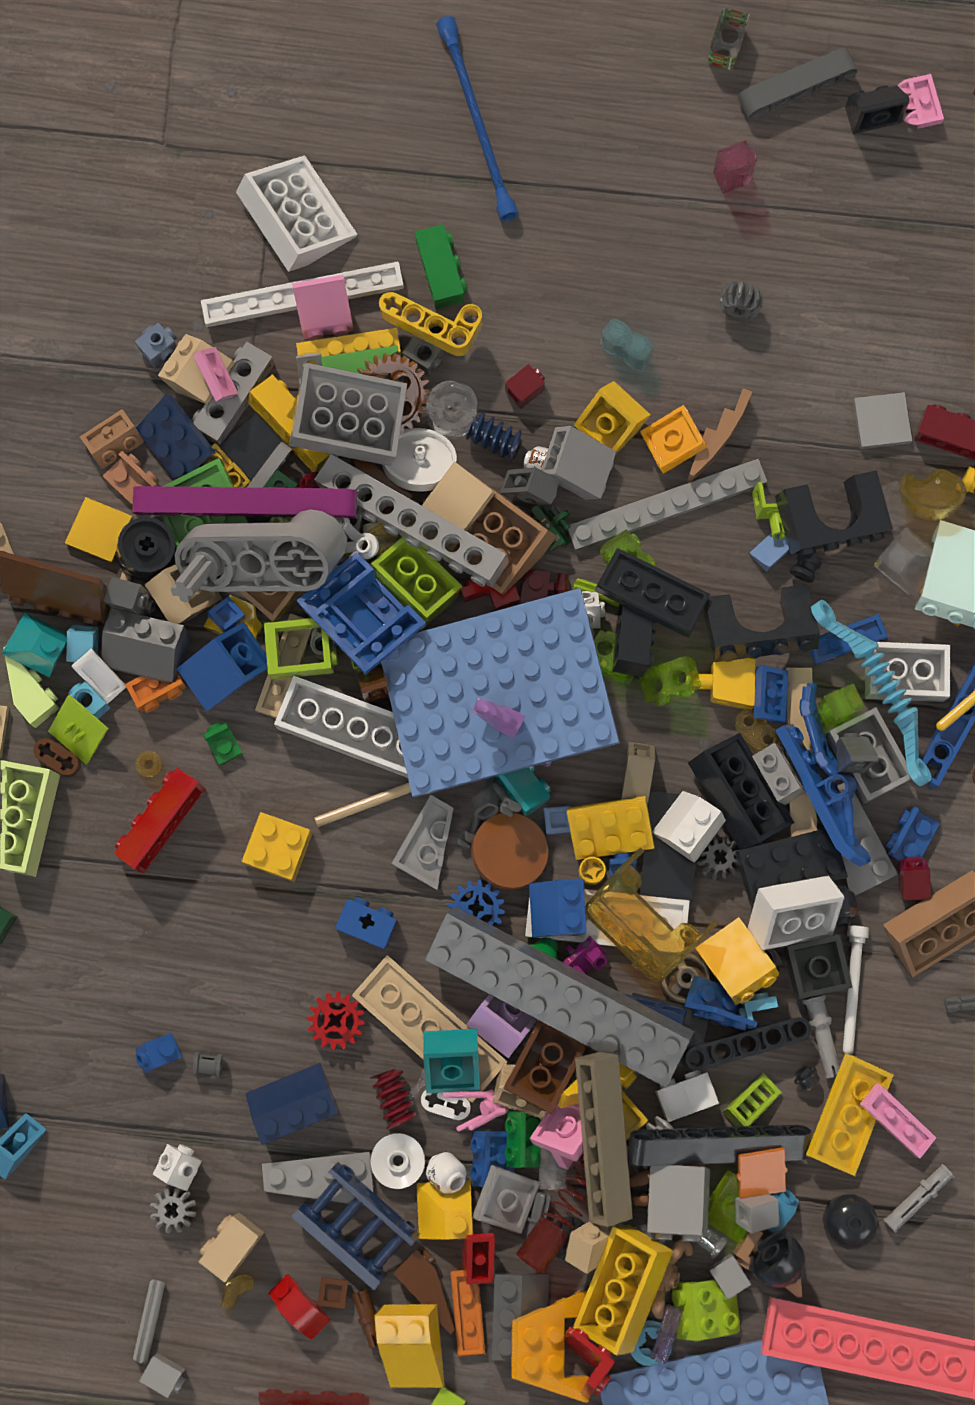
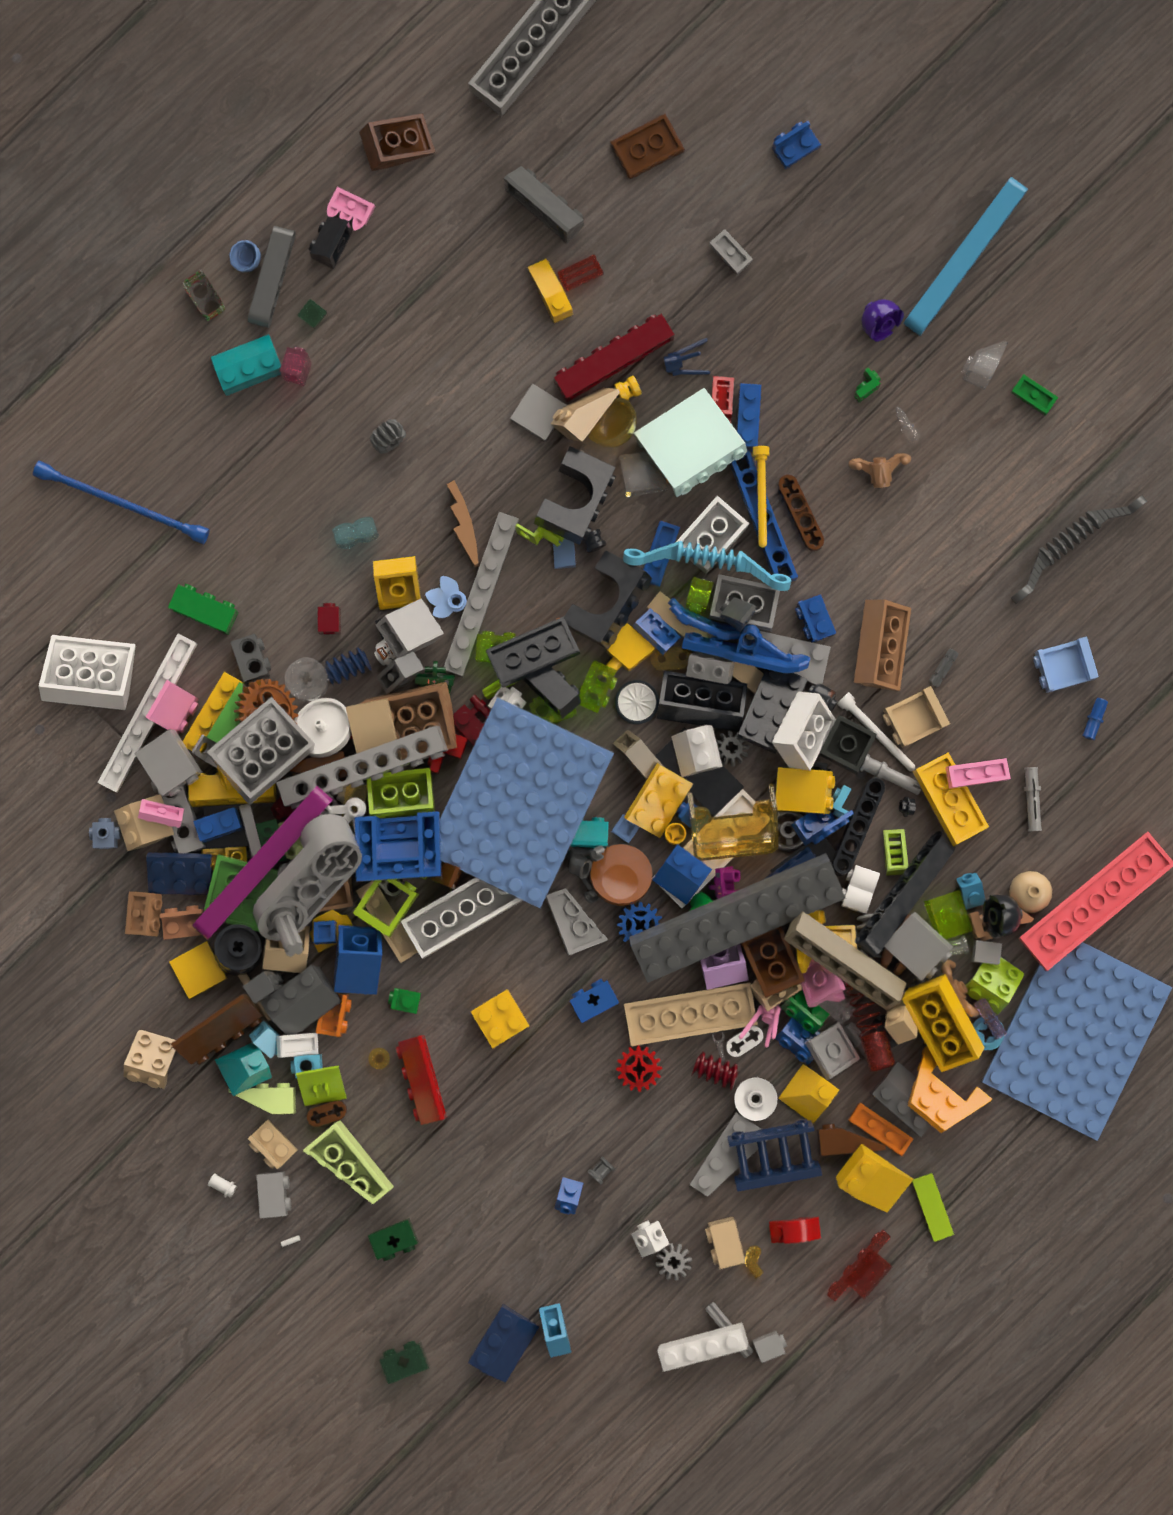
camera: 50 degrees left, 5 degrees up
(110, 1308) = (702, 1347): none -> white brick
(248, 437) = (218, 825): none -> blue brick
(268, 344) = (169, 763): none -> light grey brick
(291, 1103) = (667, 1136): dark blue slope -> none
(333, 1292) = (803, 1202): reddish brown plate -> none
(363, 804) = (516, 942): tan bar -> none
(367, 1315) = (834, 1193): reddish brown pin -> none
(430, 319) = (236, 647): yellow beam -> none
(446, 1172) = (787, 1074): white head -> none
(451, 1061) = (722, 1016): teal slope -> none
(478, 1258) = (854, 1096): red slope -> none
(500, 717) = (539, 814): medium lavender animal -> none
(597, 1357) = (969, 1072): red bracket -> none
(635, 473) = (443, 598): none -> light blue plate
(673, 439) = (443, 555): light orange tile -> none
(687, 732) = (636, 702): none -> white wheel
(696, 127) = (247, 365): none -> teal slope
(757, 1213) = (962, 904): light grey panel -> none
(761, 1173) = (942, 882): orange piece -> none
(795, 45) = (245, 256): none -> medium blue hair
(795, 146) = (312, 314): none -> clear green plate
(826, 1272) = (1031, 891): none -> tan cylinder
(850, 1221) = (1013, 852): black cylinder -> none
(900, 1014) = (915, 717): none -> tan panel
(906, 457) = (581, 416): none -> tan slope
(914, 878) = (841, 639): dark red brick -> none

